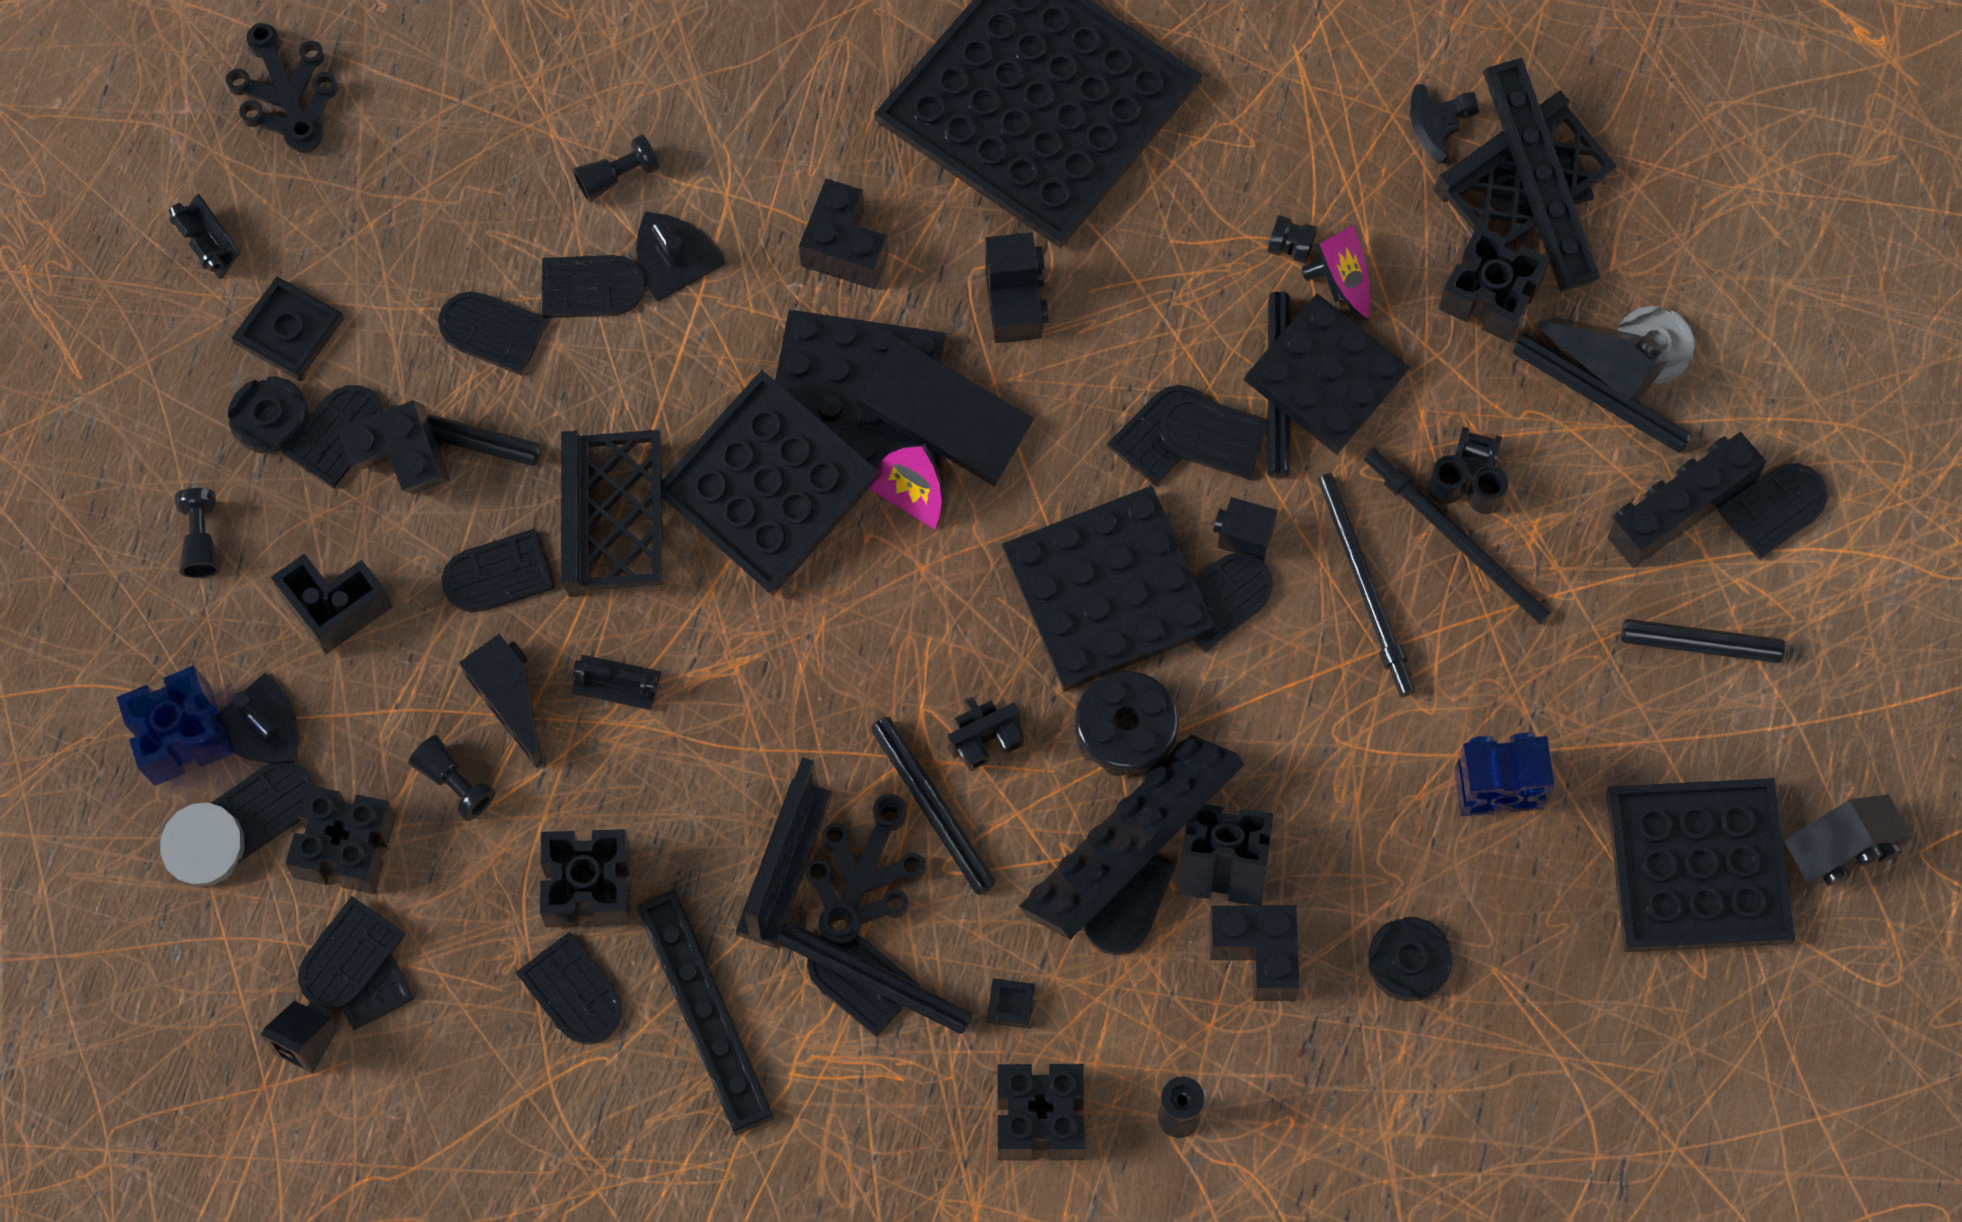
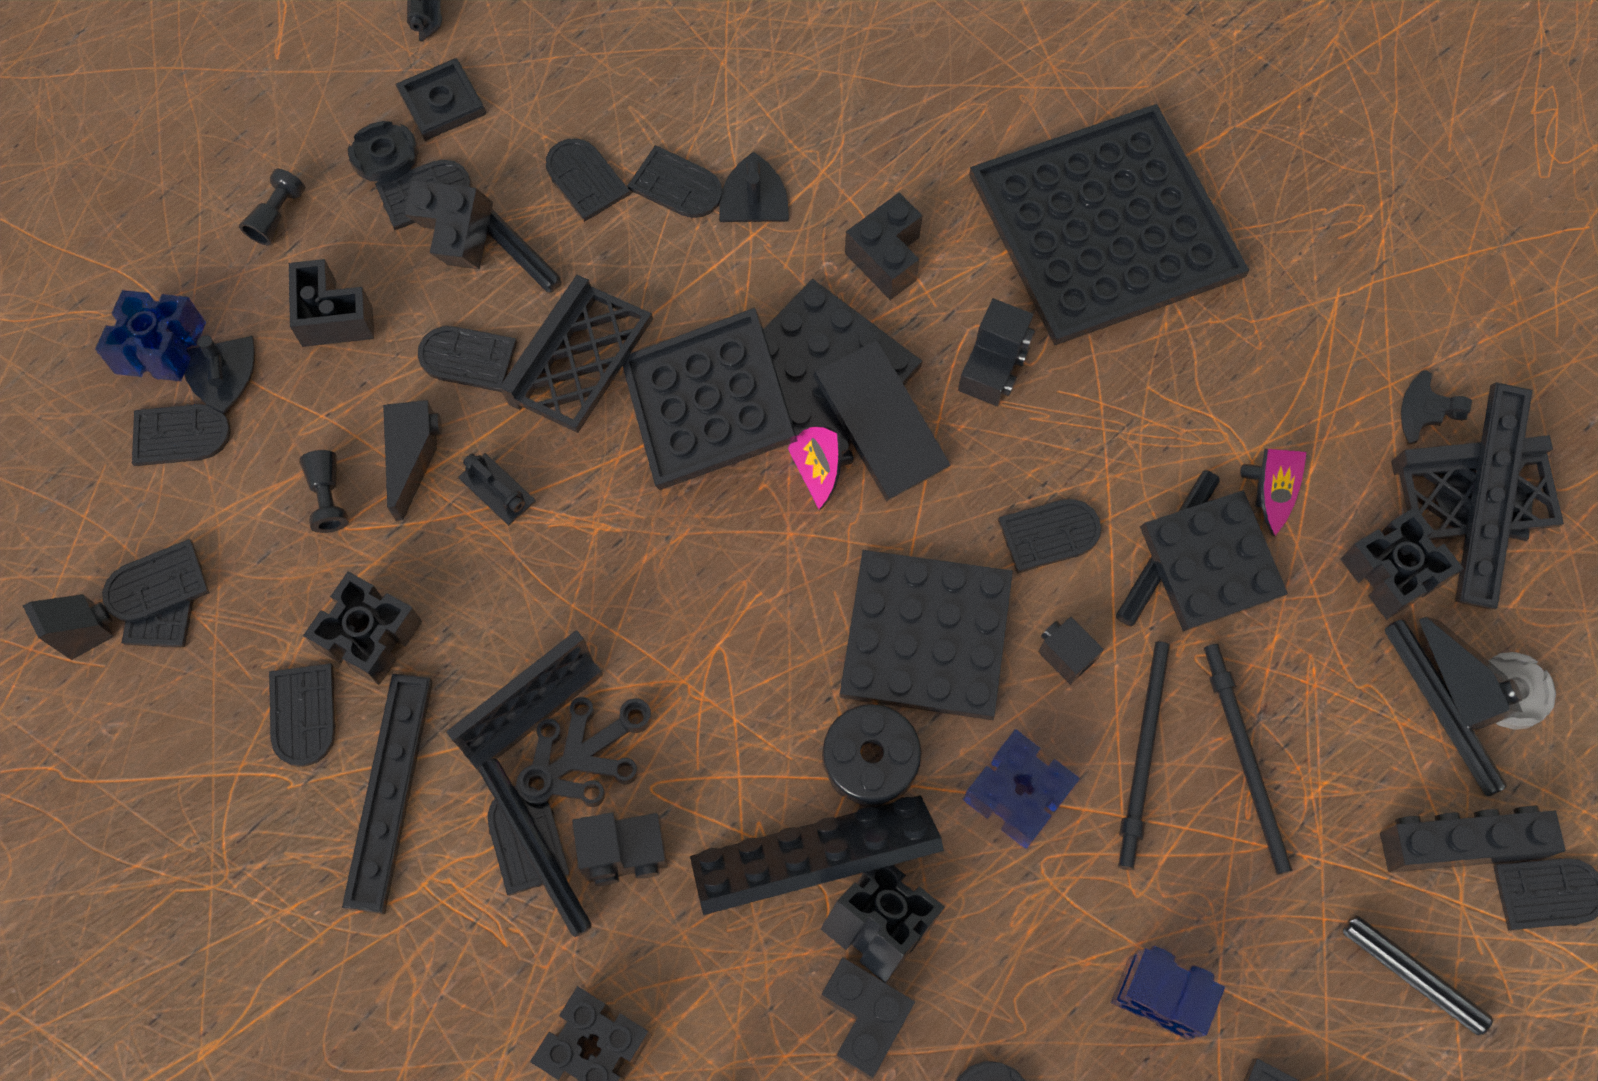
camera: 30 degrees right, 0 degrees up
(202, 844) = (113, 436): light grey tile -> none
(354, 860) = (209, 490): black brick -> none
(602, 175) = (735, 107): black piece -> none
(933, 805) = (674, 731): black axle -> none
(953, 931) = (619, 847): none -> black brick
(982, 725) = (752, 689): black hips -> none
(1010, 1003) = (632, 934): black tile -> none
(1130, 914) = (777, 919): black window -> none
(1212, 435) = (1088, 558): black window -> none
(1233, 593) = (1027, 697): black window -> none
(1257, 691) = (1045, 784): none -> clear blue brick
(1292, 239) = (1248, 436): black wheel -> none
(1472, 467) = (1293, 707): black piece -> none

